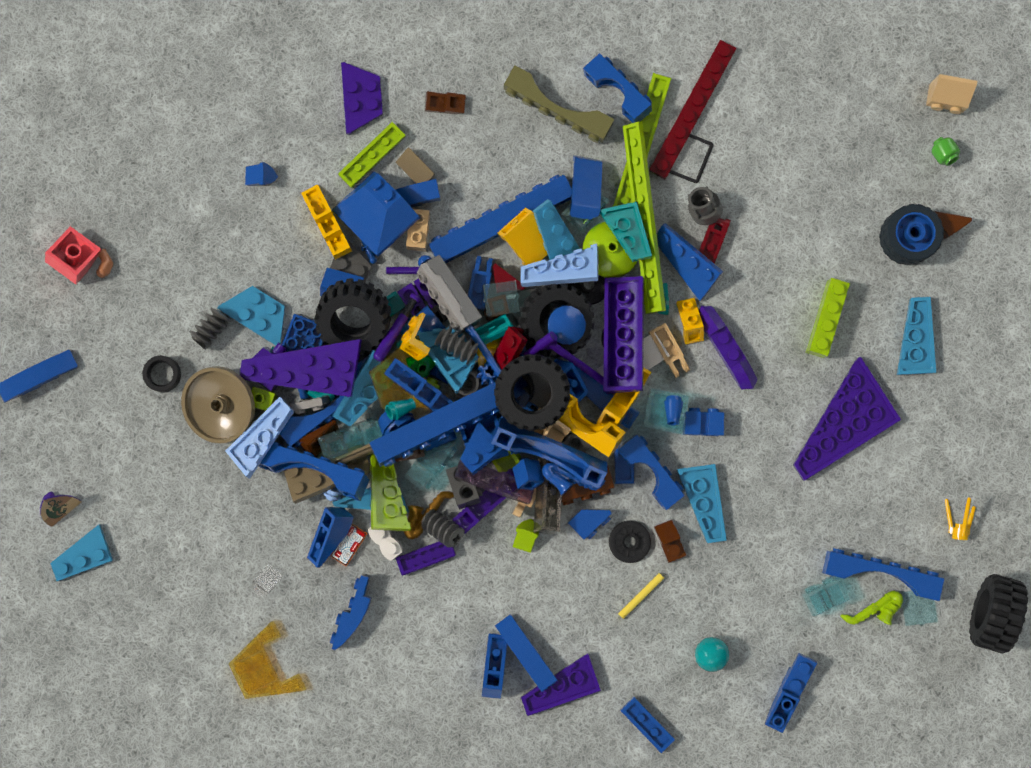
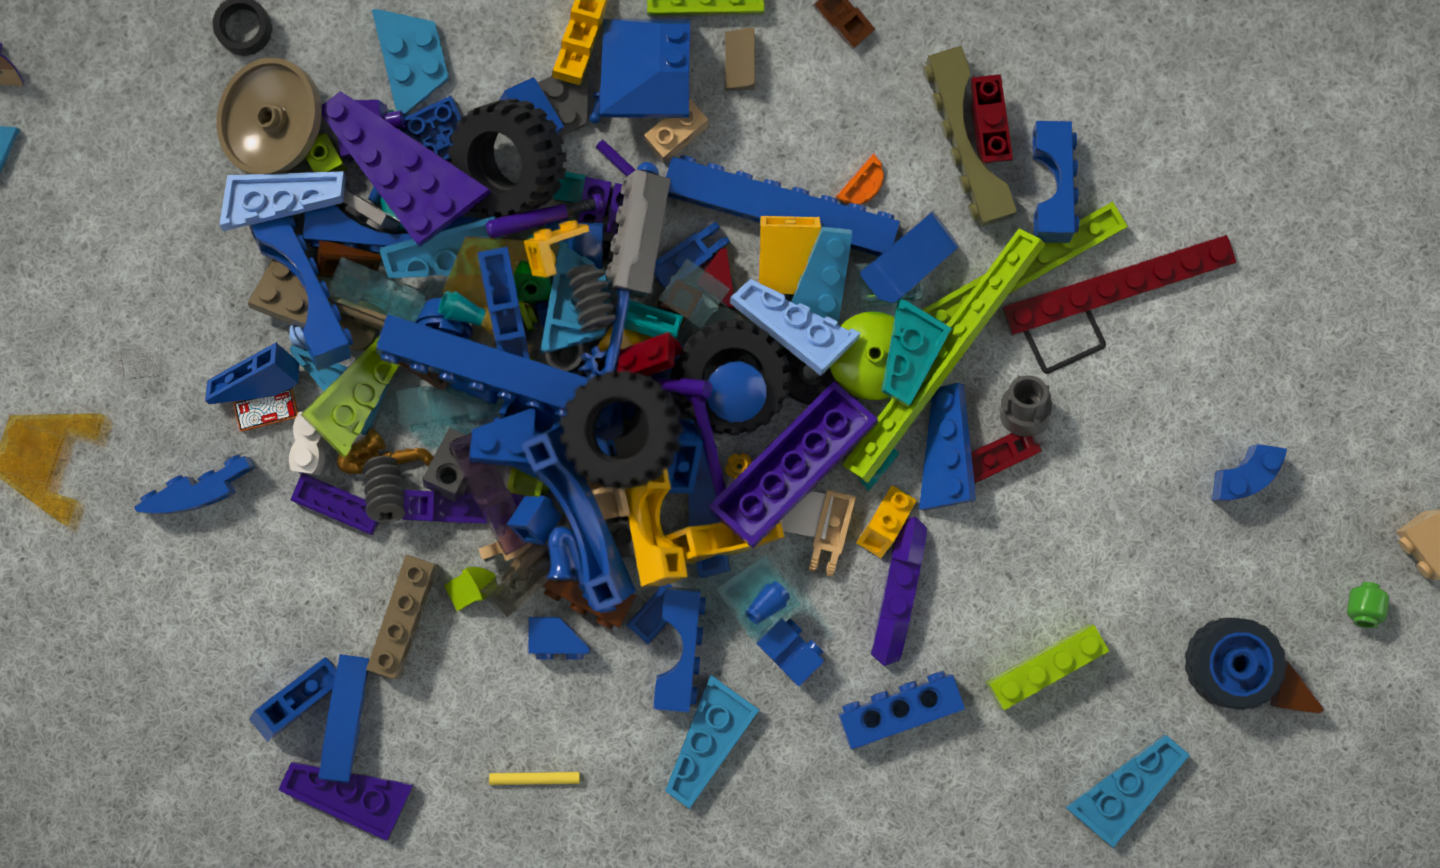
camera: 50 degrees right, 0 degrees up
(209, 327) = (342, 24): dark grey piece -> none
(420, 193) = (716, 91): blue slope -> none
(508, 579) = (402, 617): none -> dark tan brick
(529, 173) = (864, 183): none -> orange tile
(561, 87) = (990, 119): none -> dark red slope
(592, 360) = (733, 461): none -> yellow plate
(641, 537) = (561, 710): black wheel -> none
(670, 541) = (625, 748): reddish brown slope -> none
(797, 378) = (947, 702): none -> blue brick
(837, 141) = (1251, 474): none -> blue brick
(851, 419) = (965, 807): dark purple wing -> none

